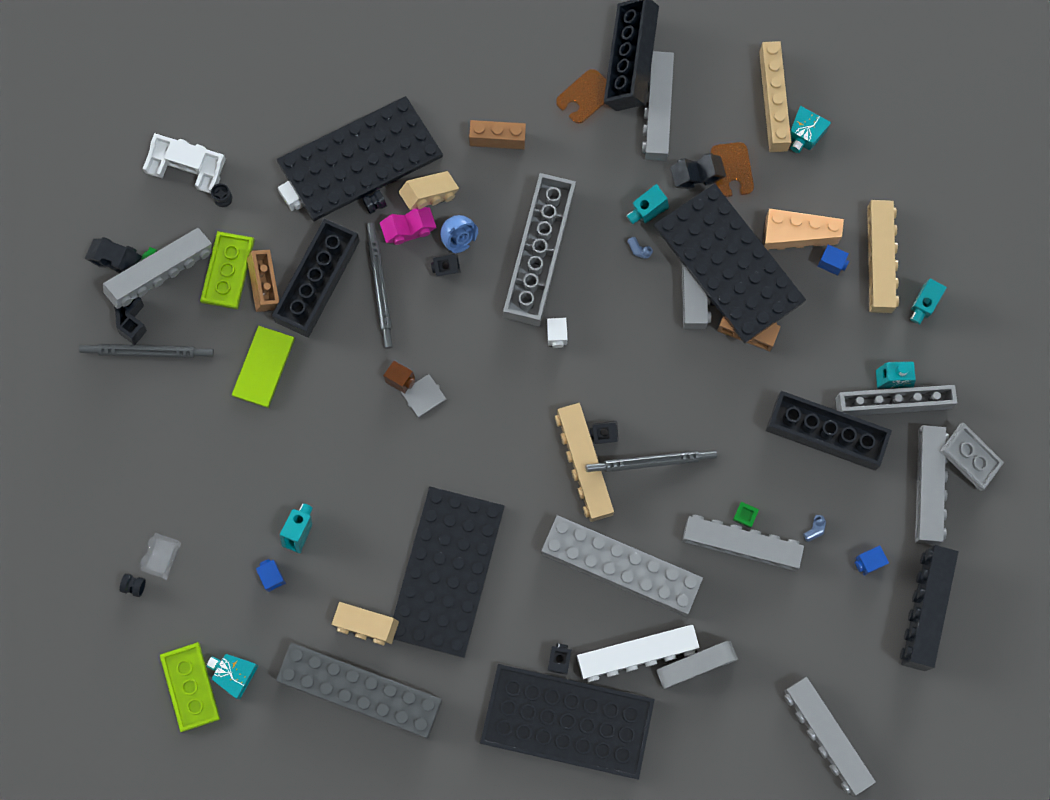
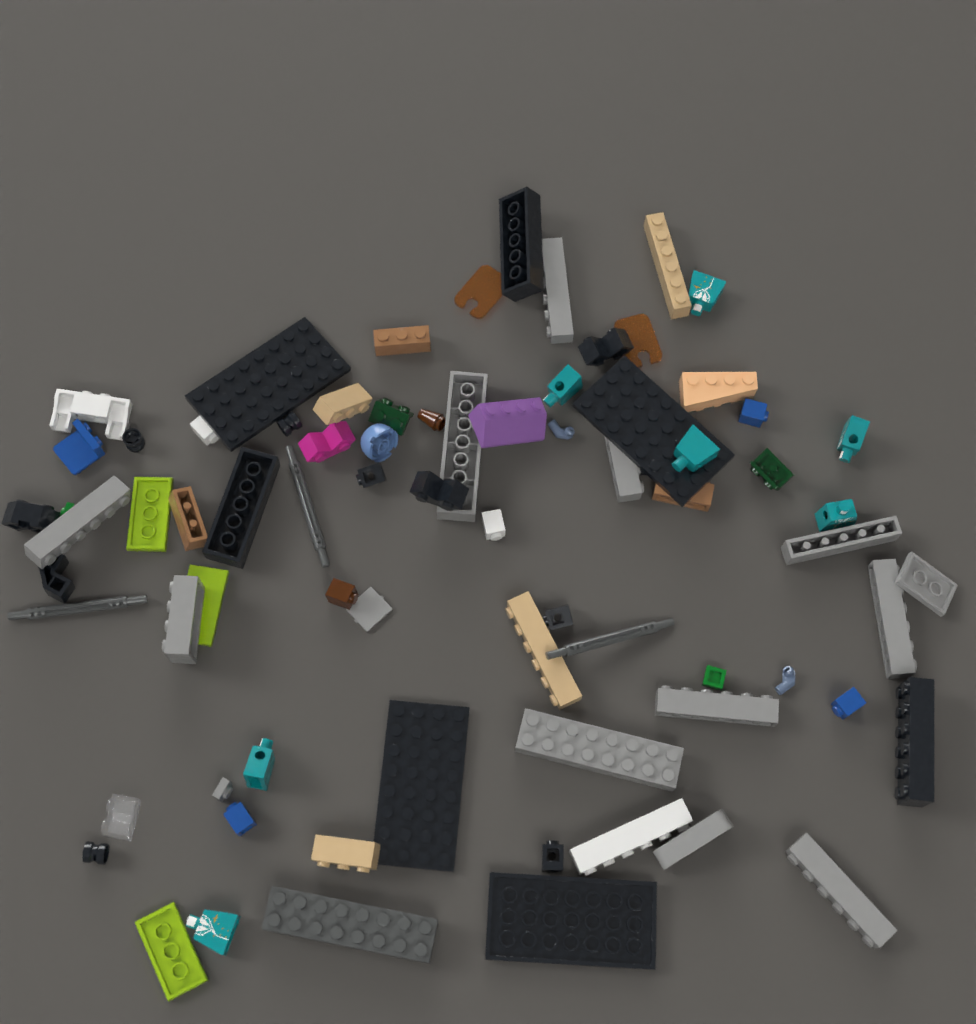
camera: 10 degrees left, 5 degrees down
(168, 195) = (79, 448): none -> blue bracket
(245, 378) = (183, 619): none -> light grey piece
(259, 546) = (223, 790): none -> light grey plate
(475, 208) = (391, 415): none -> dark green bracket
(512, 294) = (439, 492): none -> black brick
(514, 218) = (432, 419): none -> reddish brown cone
(589, 233) = (509, 422): none -> medium lavender slope
(765, 290) = (694, 450): none -> teal torso
(829, 430) = (781, 580): black brick -> none
(840, 320) = (771, 469): none -> dark green bracket
(882, 256) = (799, 403): tan brick -> none

